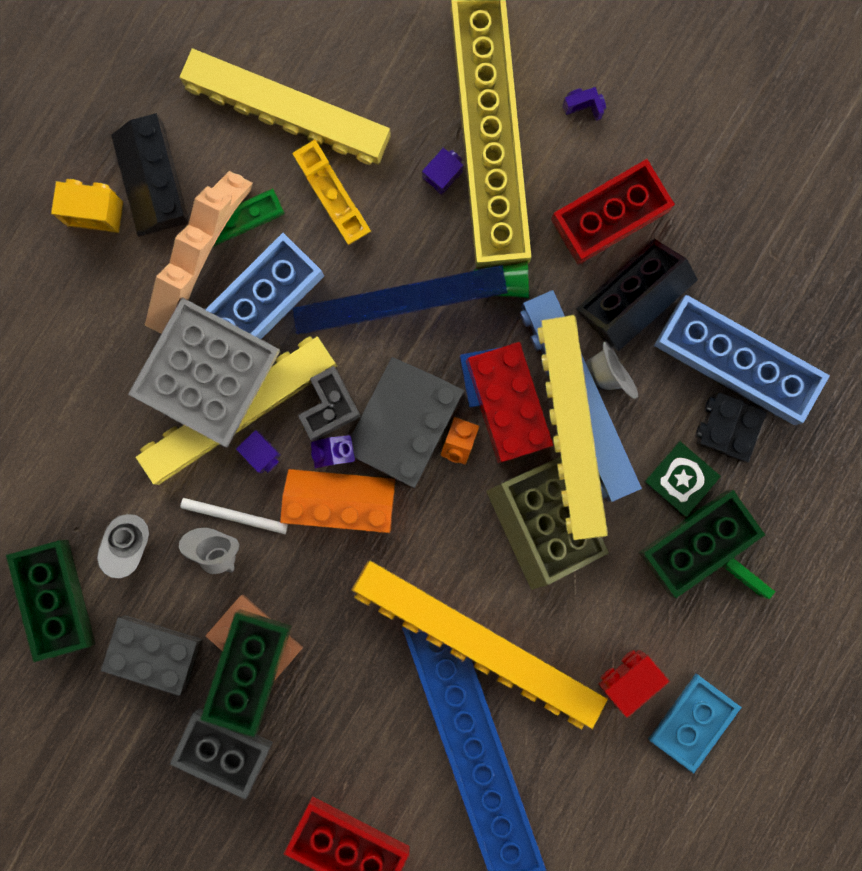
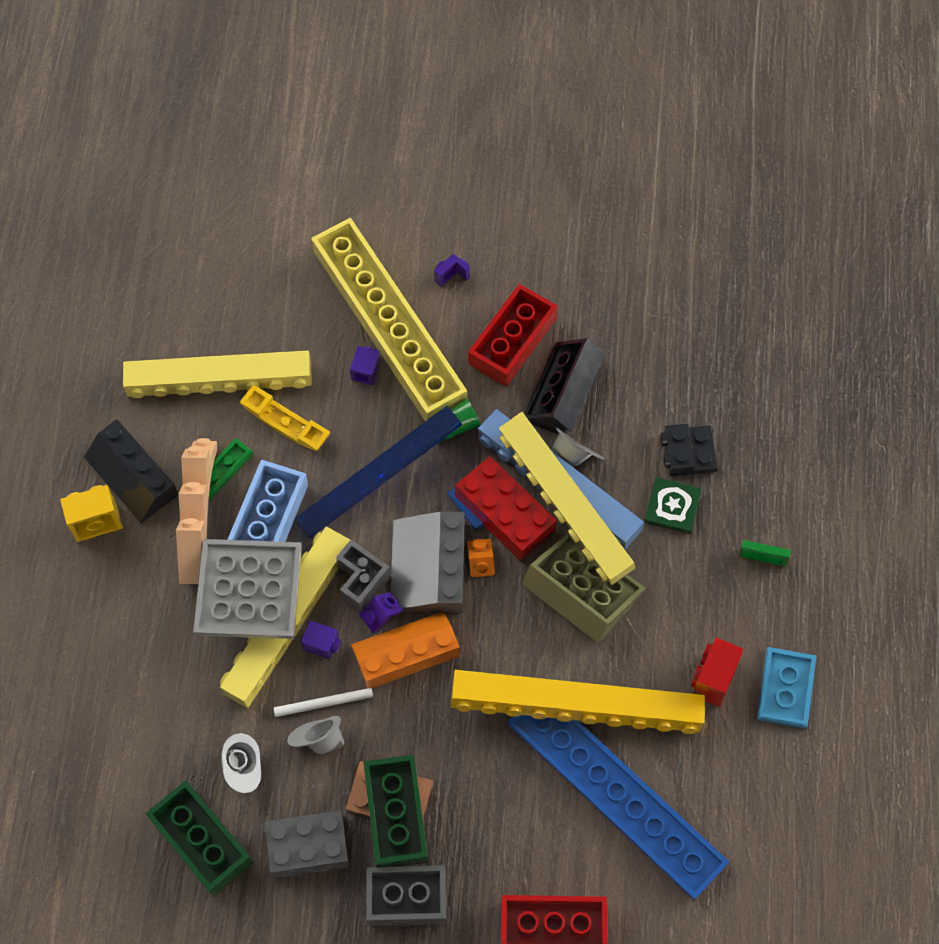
camera: 25 degrees left, 20 degrees down
(702, 543) = (713, 542): dark green brick -> none
(741, 360) = (669, 395): light blue brick -> none

